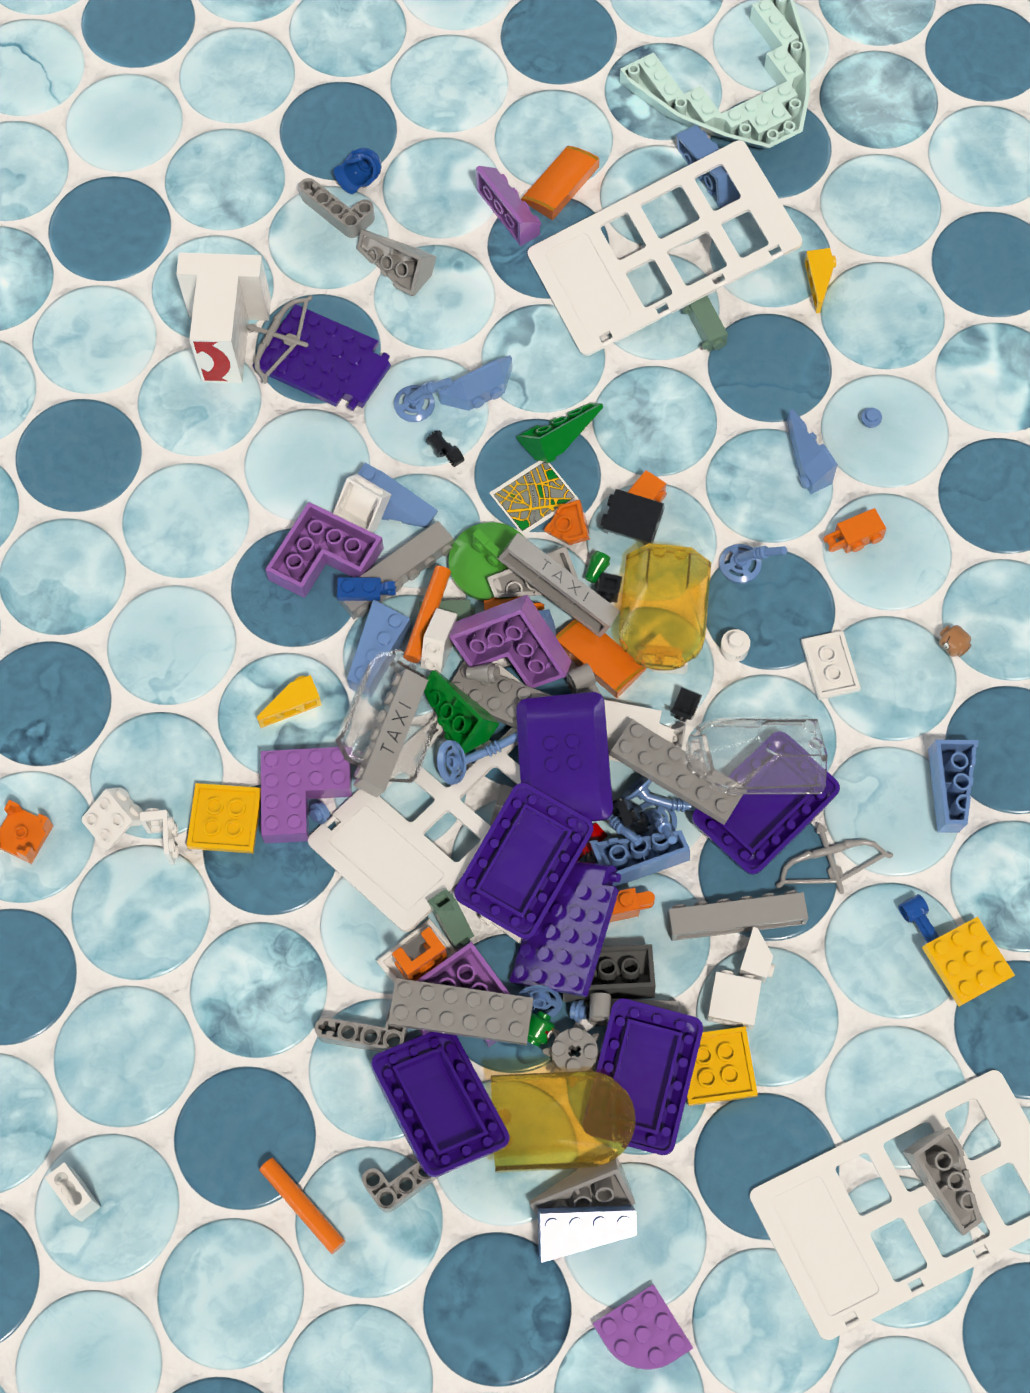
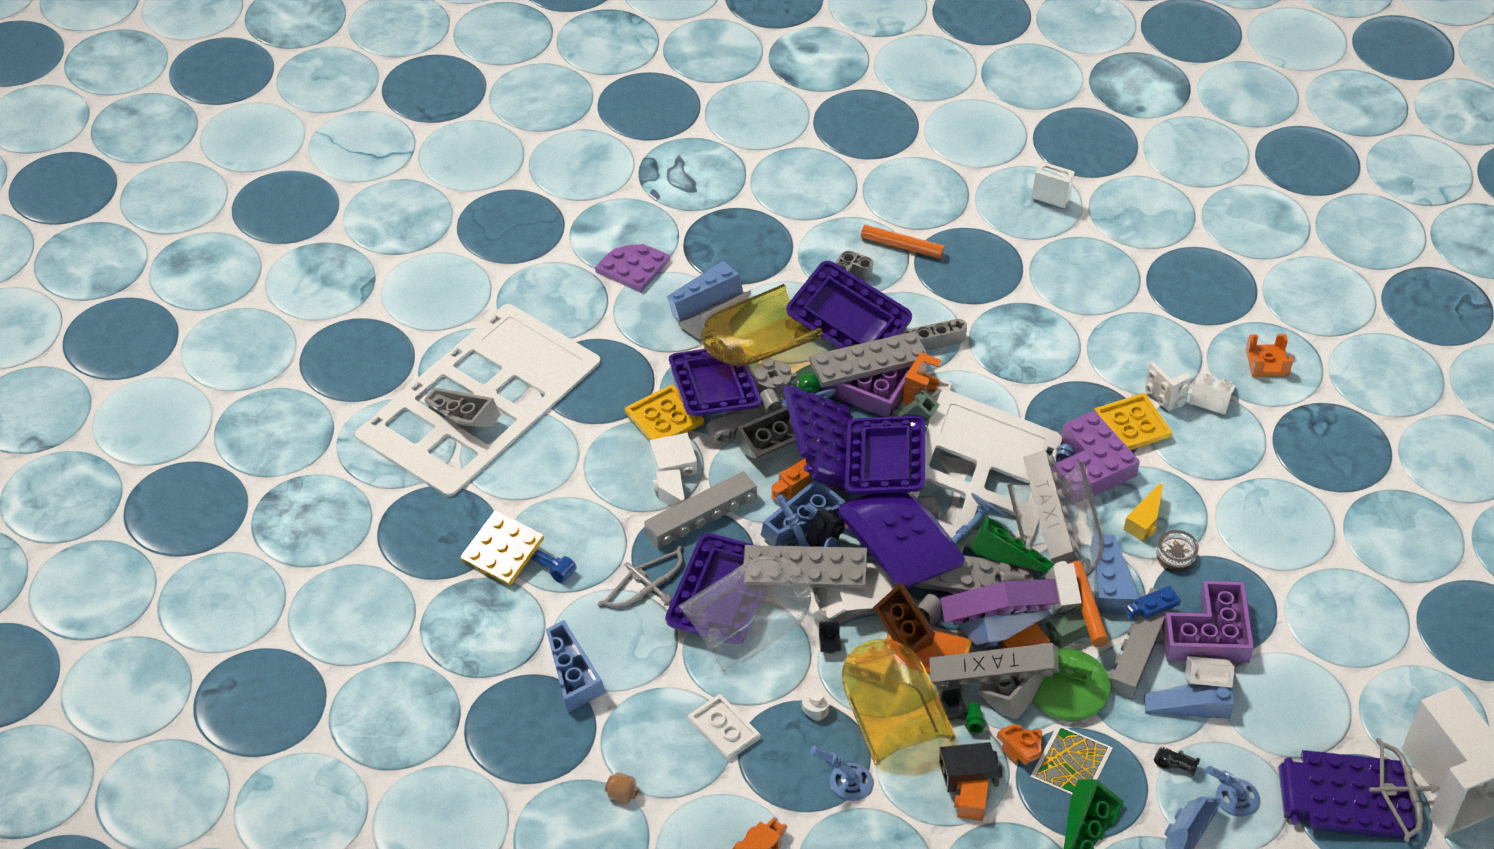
camera: 150 degrees right, 20 degrees down
(293, 646) = (1177, 550): none -> clear piece
(612, 671) = (904, 619): none -> reddish brown slope

